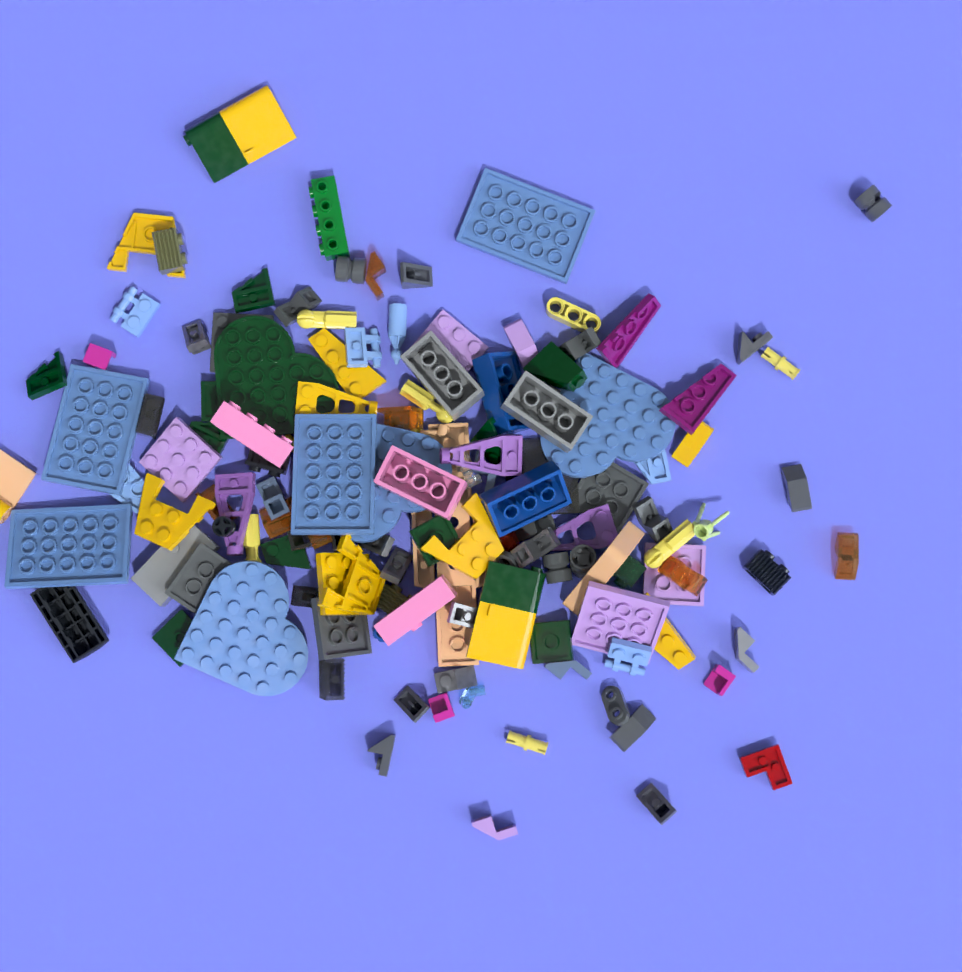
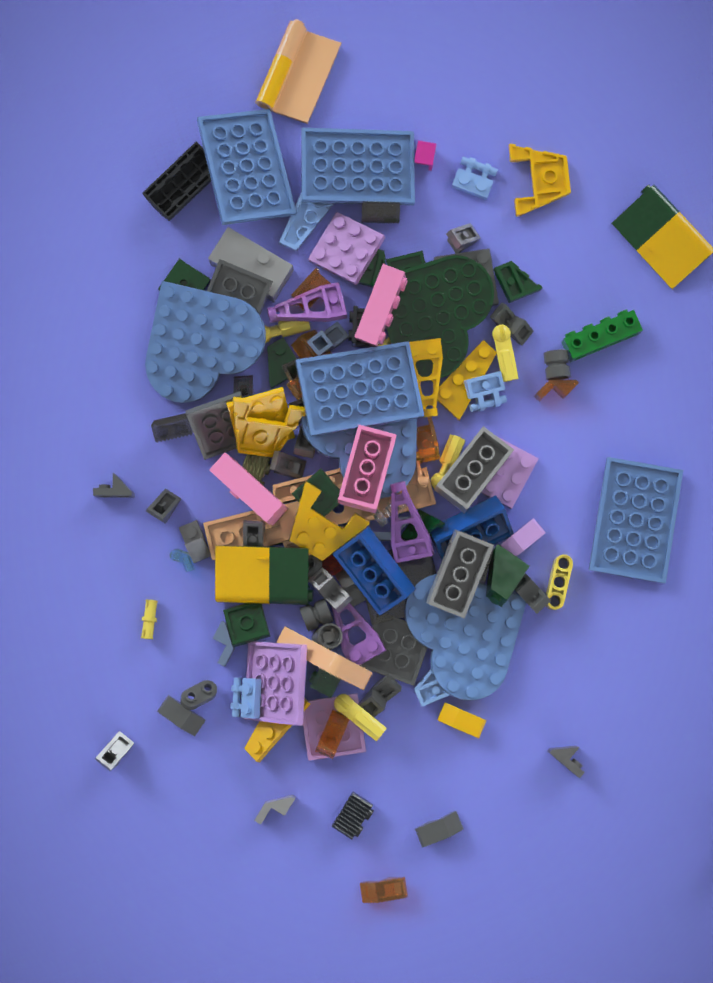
camera: 80 degrees right, 0 degrees up
(47, 378) = (396, 114): dark green wing -> none
(164, 523) = (284, 242): yellow wing -> none
(169, 251) = (536, 195): olive brick -> none
(219, 526) = (289, 295): black wheel -> none
(397, 328) = (510, 419): light blue wheel -> none
(415, 276) = (564, 426): dark grey slope -> none
(441, 707) = (166, 533): dark pink panel -> none
(487, 826) = (65, 597): lavender slope -> none
(624, 336) = (554, 637): magenta wing -> none
(696, 402) = (498, 714): magenta wing -> none
(704, 528) = (380, 746): yellowish green plant -> none
(719, 680) = (241, 789): dark pink panel -> none
(769, 761) = (175, 850): red plate -> none
(780, 363) = (556, 790): light yellow pin -> none

